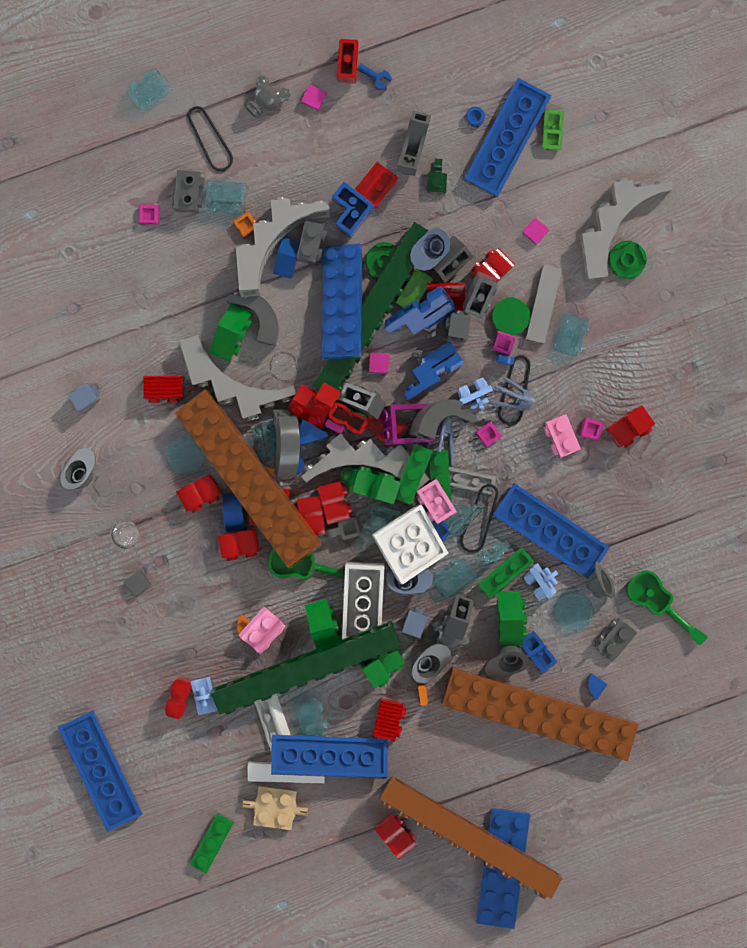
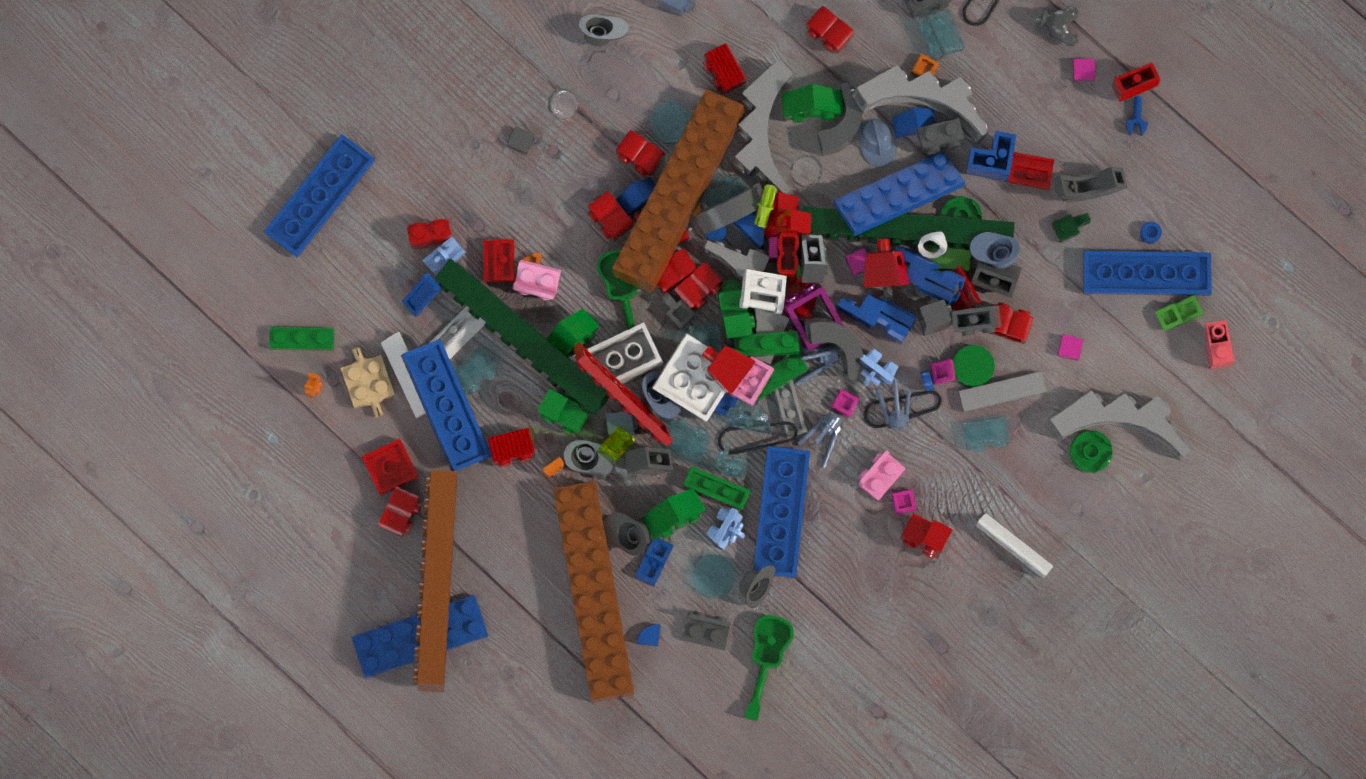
camera: 65 degrees right, 10 degrees down
(175, 285) = (829, 29): none -> red brick
(226, 730) = (421, 294): none -> blue tile
(229, 652) = (499, 260): none -> red plate
(256, 853) = (313, 385): none -> orange plate
(287, 296) = (877, 142): none -> sand blue piece
(299, 416) = (765, 206): none -> lime axle
(354, 825) = (390, 467): none -> red plate
(364, 450) = (763, 284): none -> white plate
(396, 291) = (937, 237): none -> white piece
(397, 613) = (619, 391): none -> red plate
(398, 345) = (885, 267): none -> red torso
(418, 516) = (727, 367): none -> red torso
(434, 638) = (615, 445): none -> clear neon green slope
(501, 456) = (829, 425): none -> sand blue plant
(596, 112) = (1218, 345): none -> coral slope
(671, 360) = (1014, 545): none -> white slope

